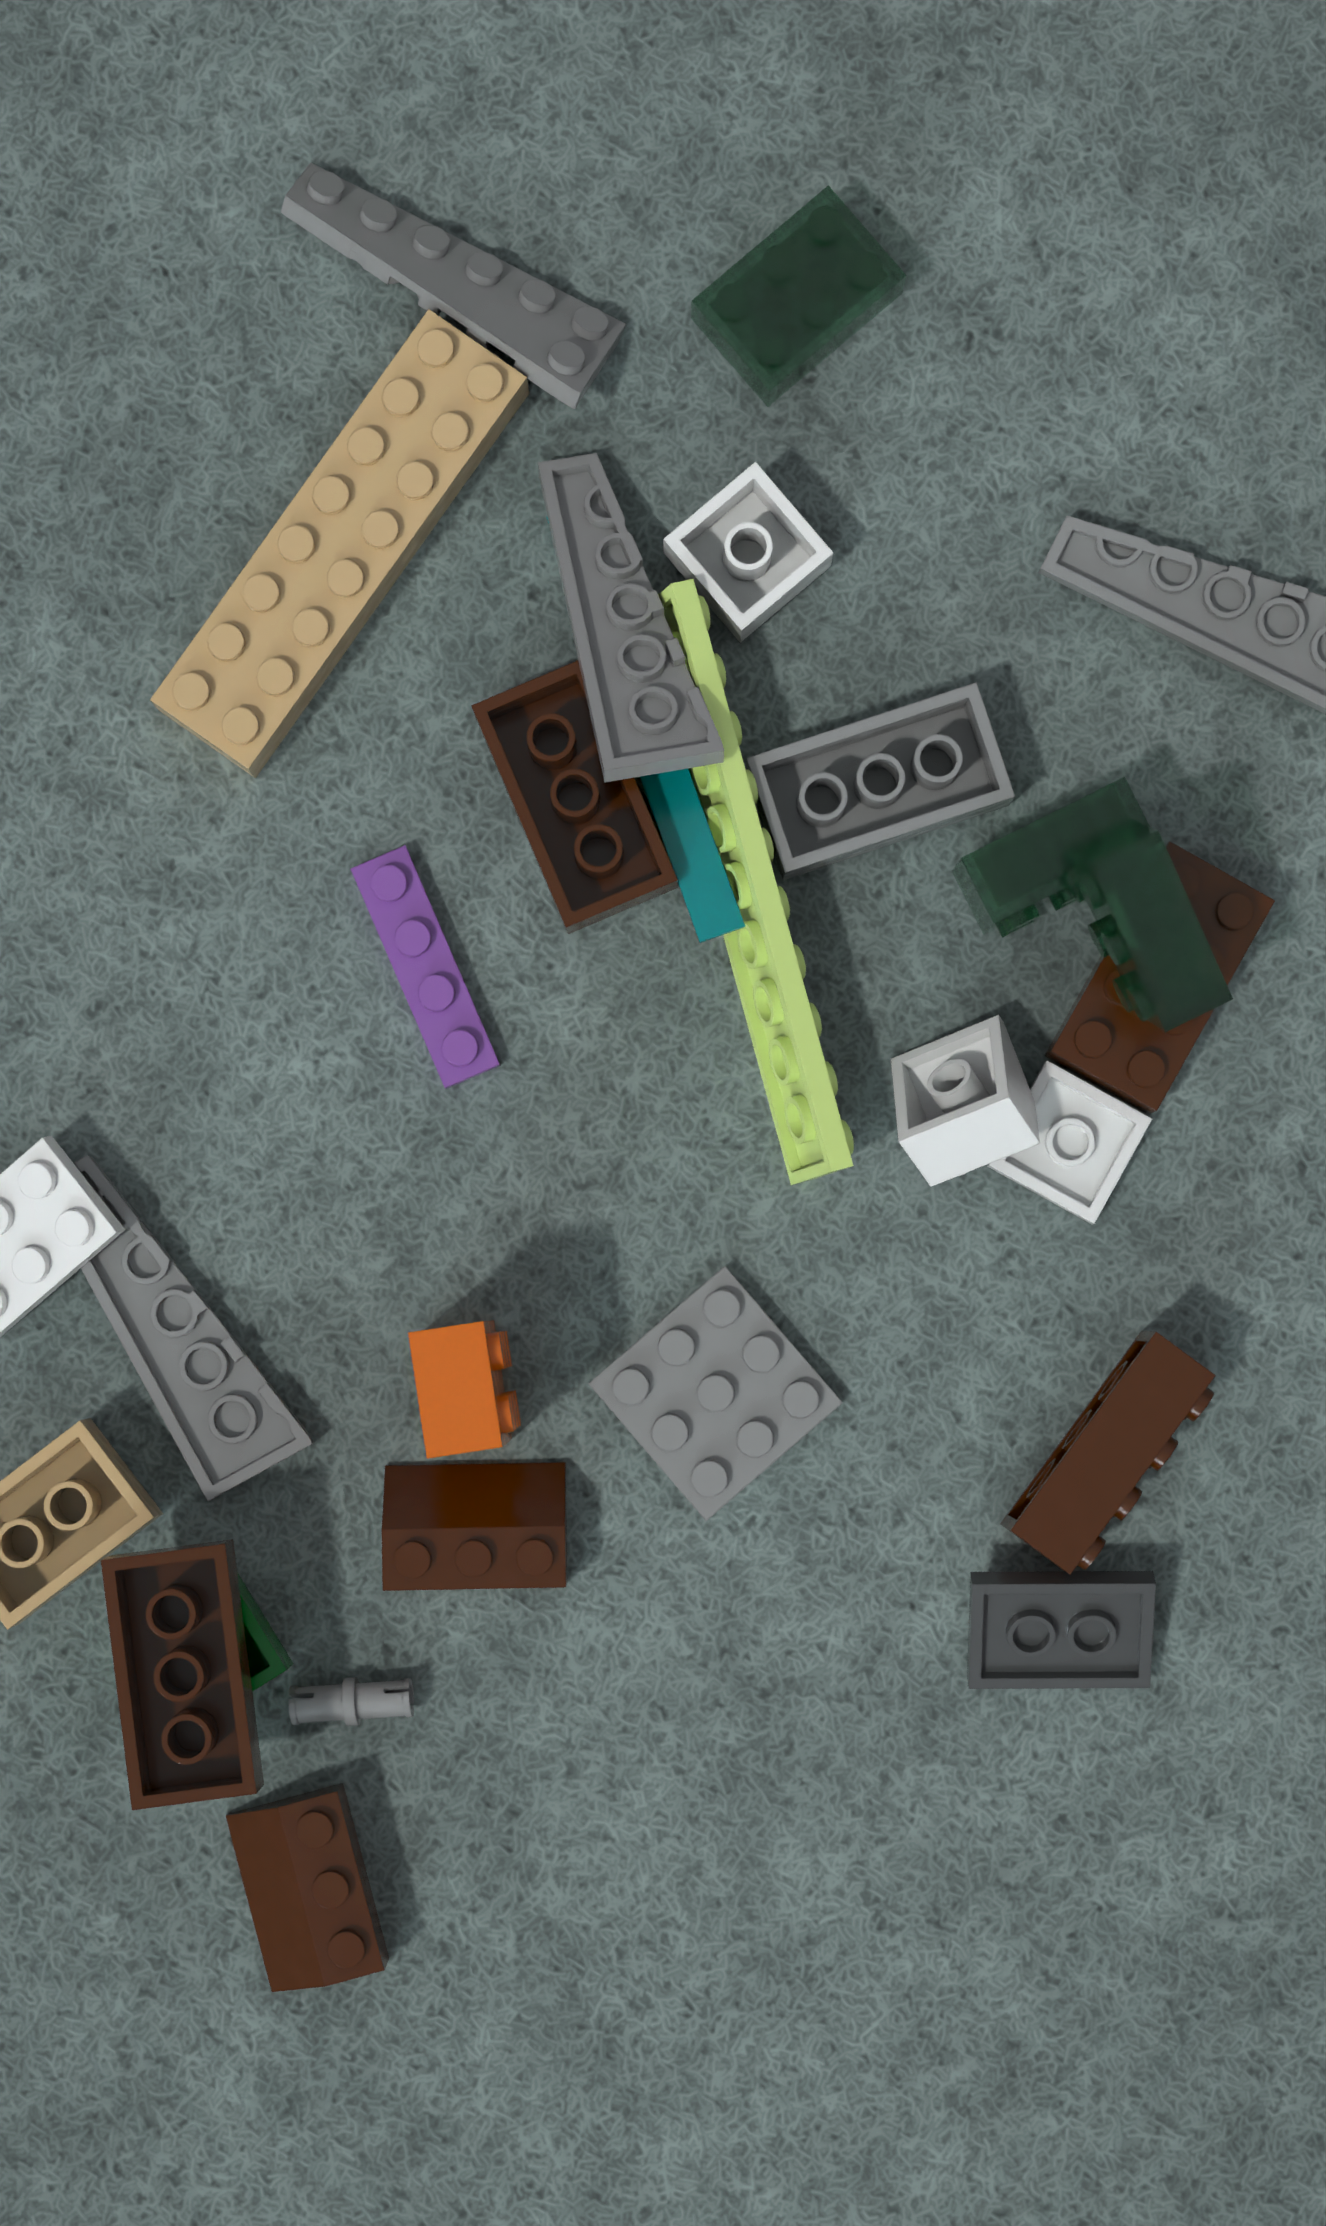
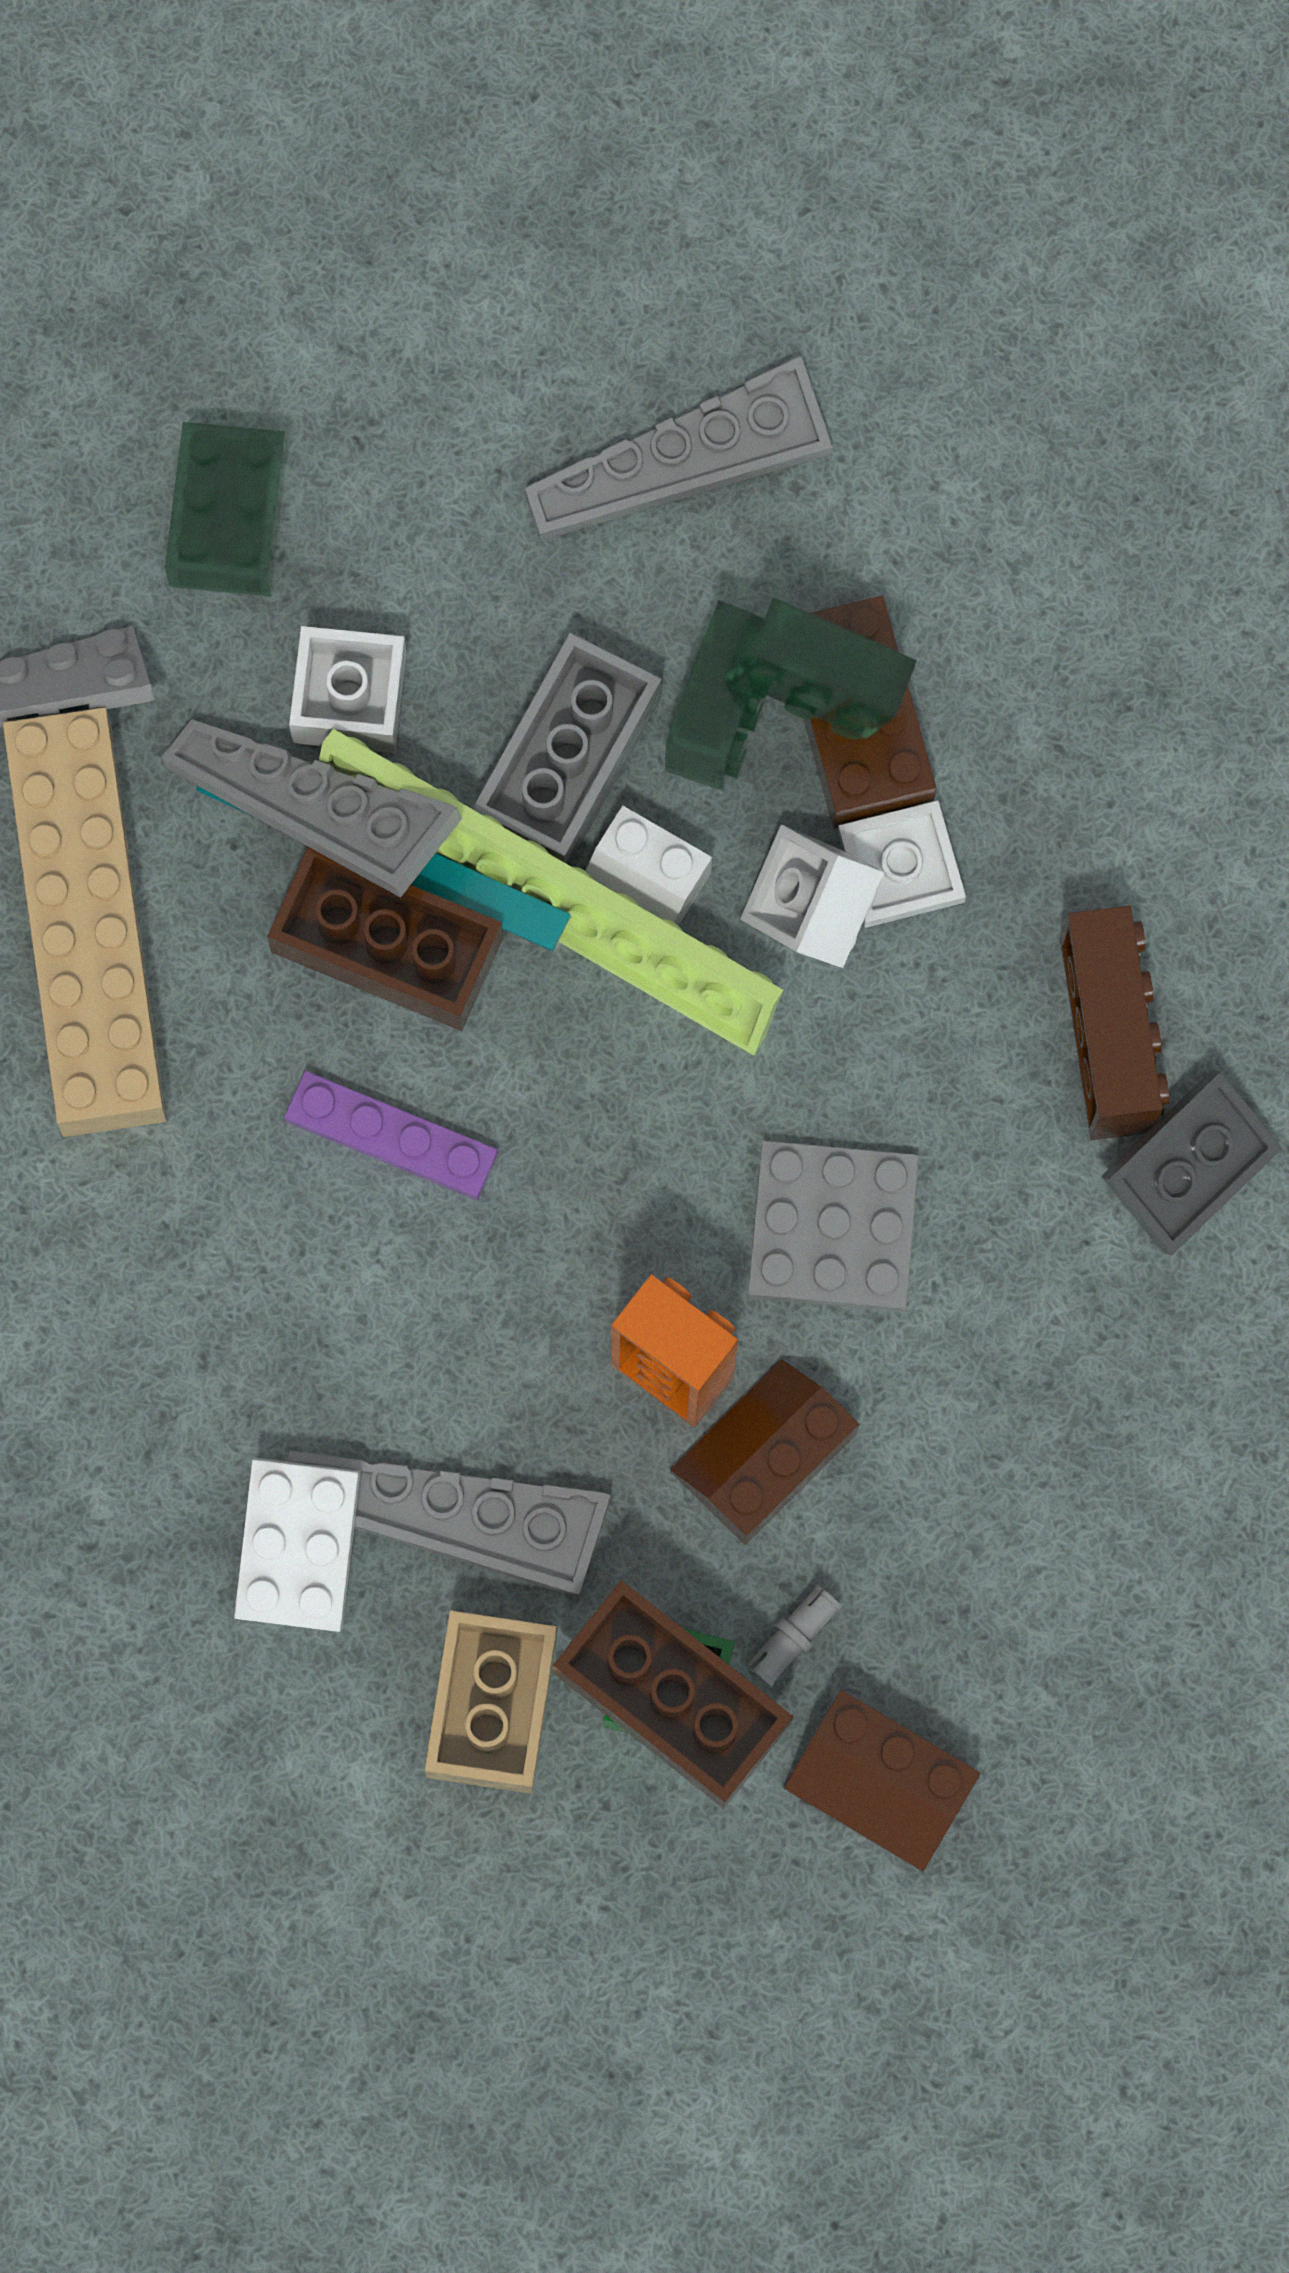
camera: 45 degrees left, 10 degrees down
(847, 947) = (649, 866): none -> white slope

